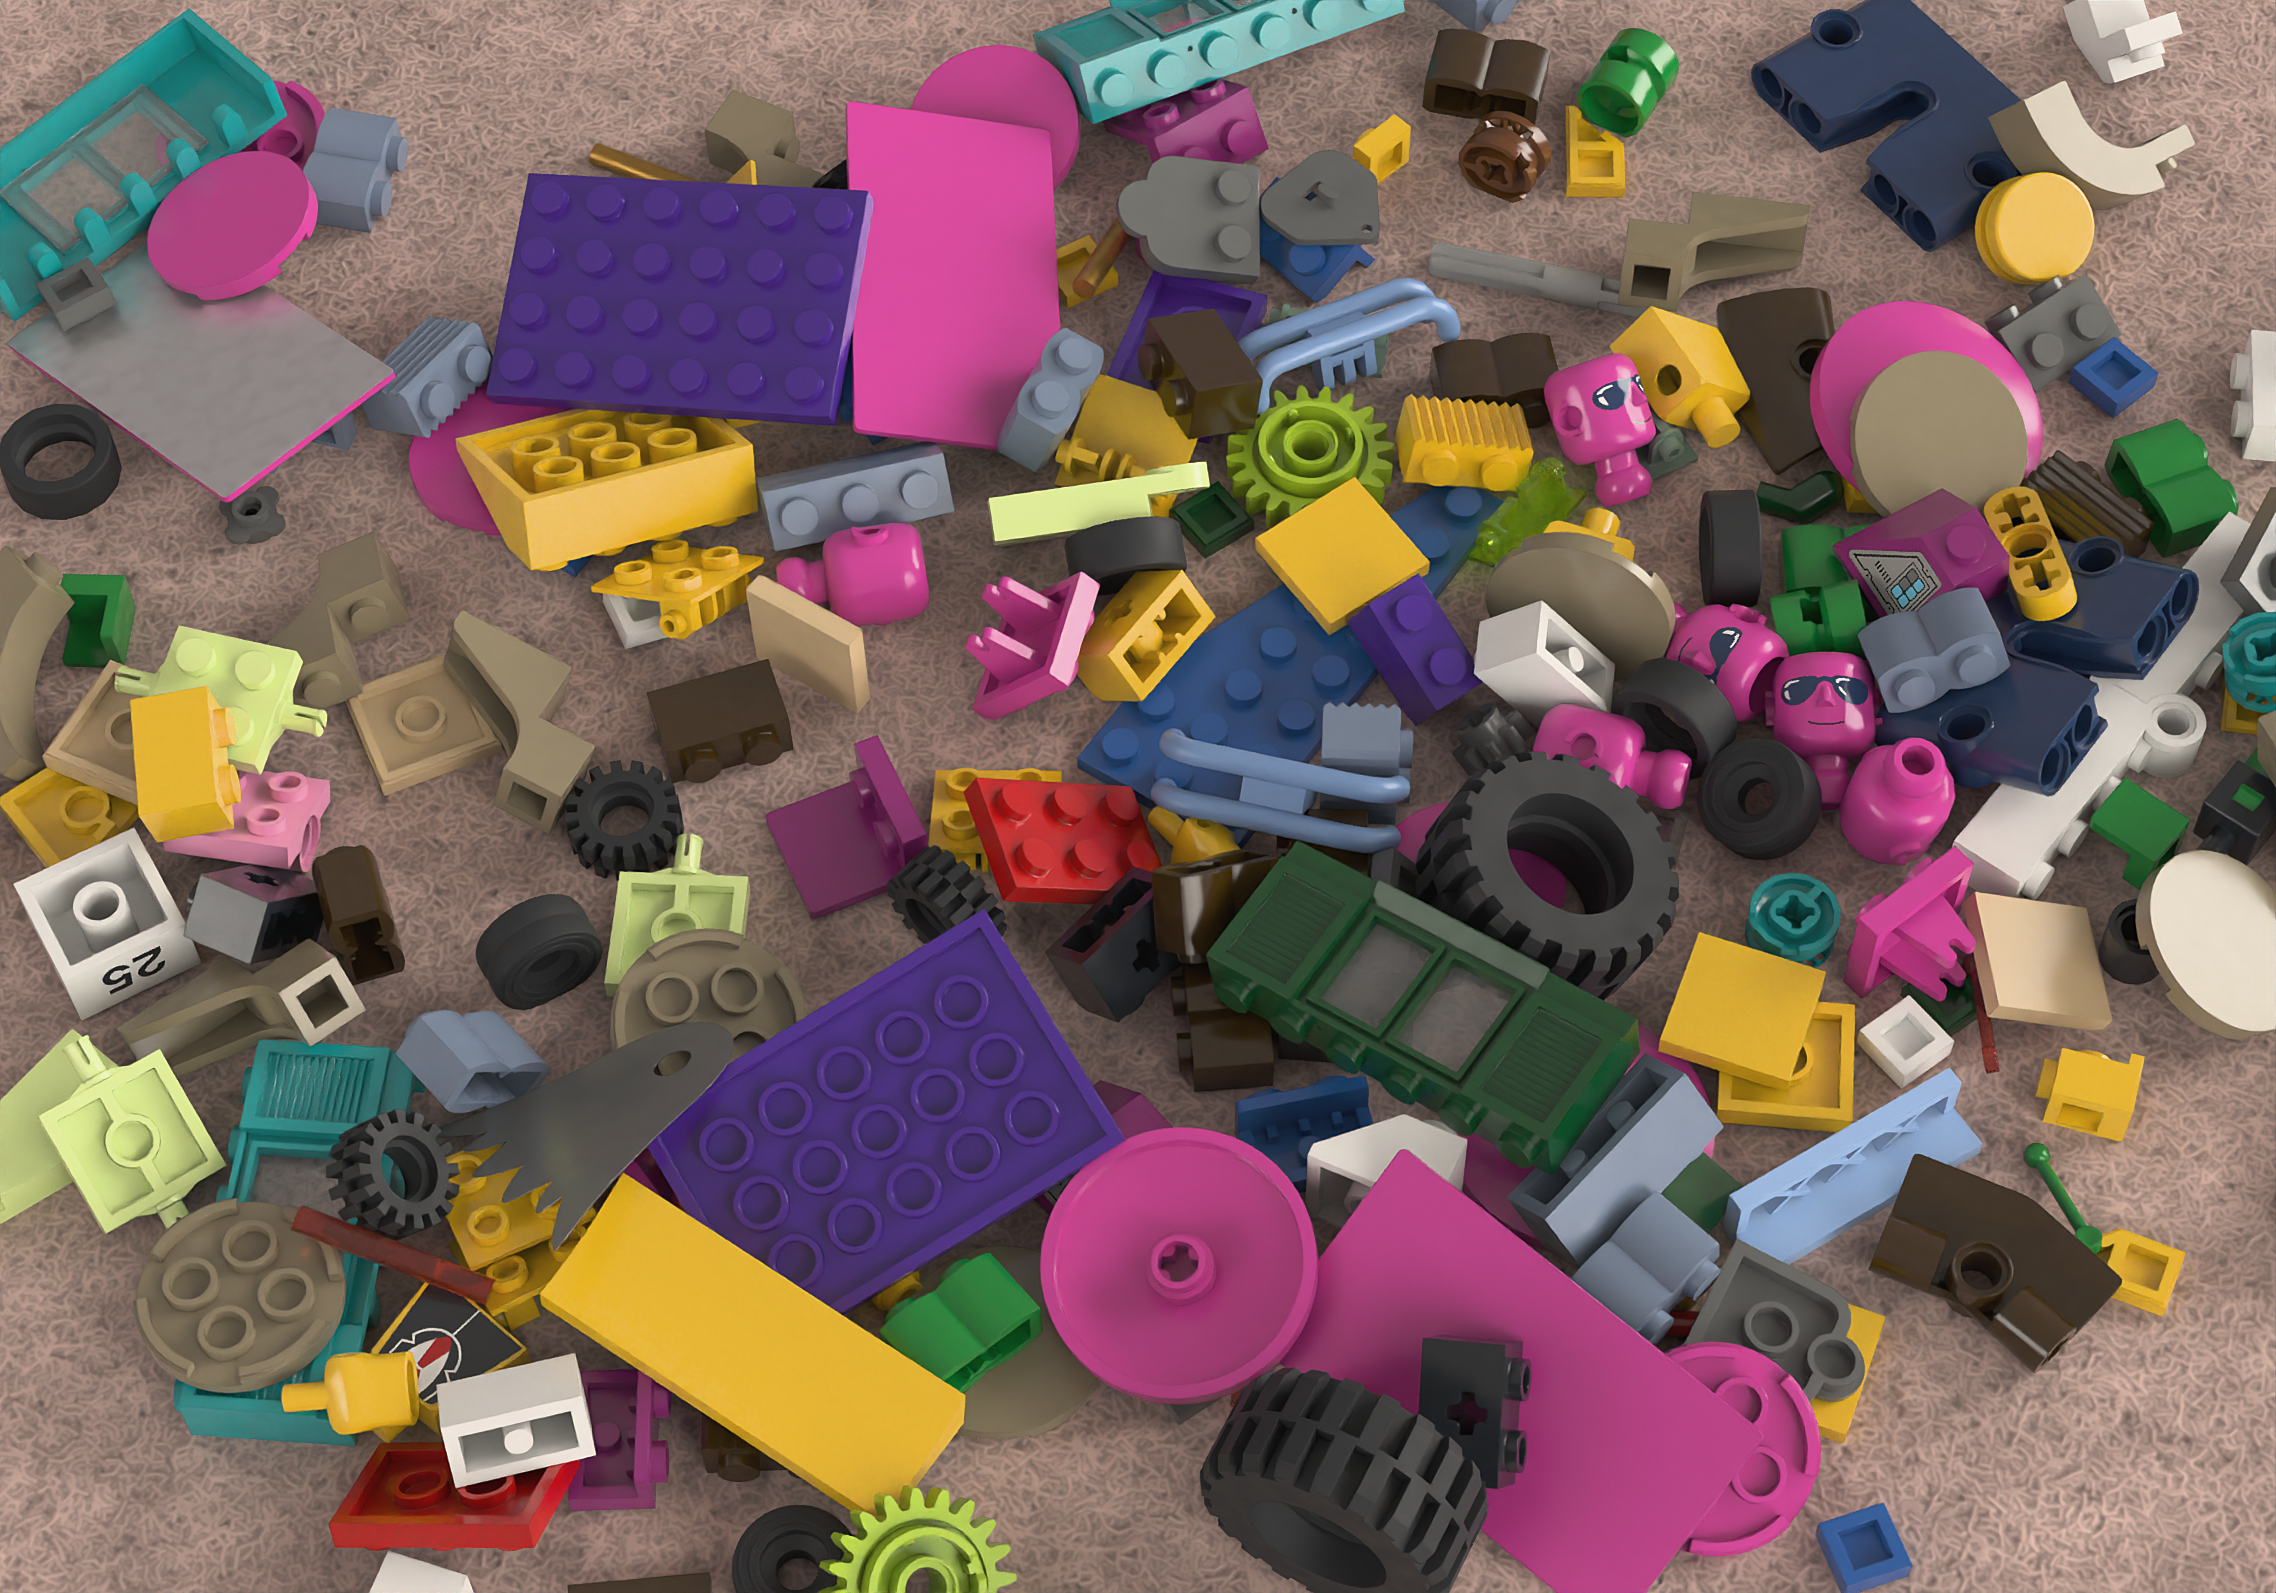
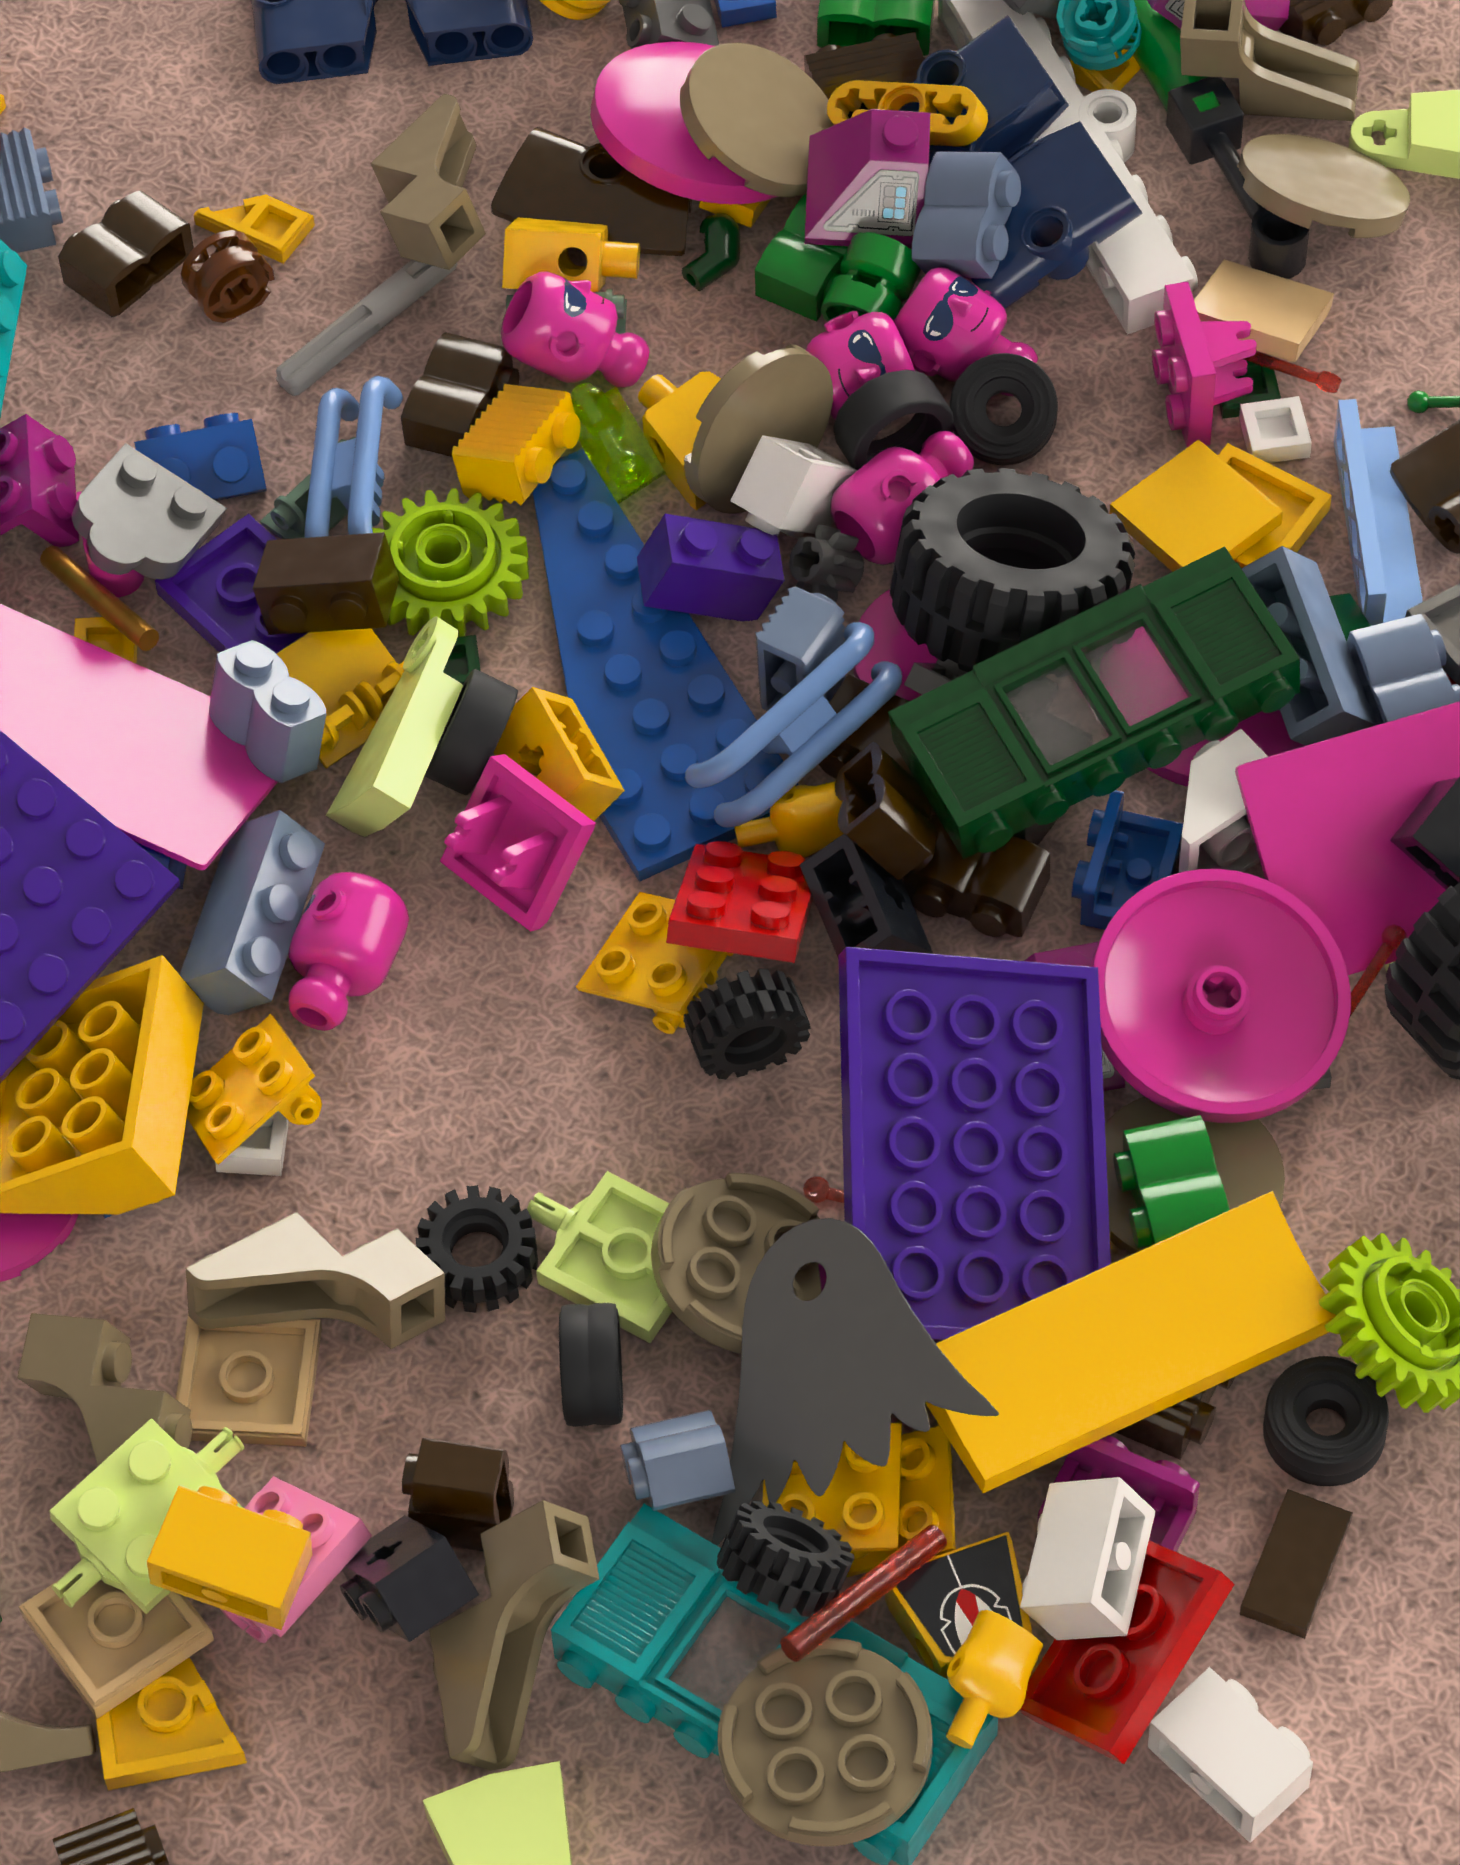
camera: 60 degrees left, 0 degrees up
(107, 923) = (324, 1723): white brick -> none
(130, 1139) = (592, 1785): yellowish green plate -> none
(720, 722) = (423, 1126): dark brown brick -> none
(808, 643) = (402, 1010): tan tile -> none
(850, 837) = (612, 1069): magenta bracket -> none
(1338, 213) = (210, 417): dark grey piece -> none
(1340, 554) = (575, 578): yellow tile -> none
(1384, 148) = (150, 369): yellow plate -> none
(1628, 82) = (211, 155): green wheel -> none
(1730, 547) = (759, 288): black tyre -> none
(1793, 918) = (1141, 444): teal wheel -> none
(1897, 801) = (1070, 315): dark pink piece -> none
(2090, 1092) = (1394, 334): yellow brick -> none
(2141, 827) = (1187, 182): green panel -> none

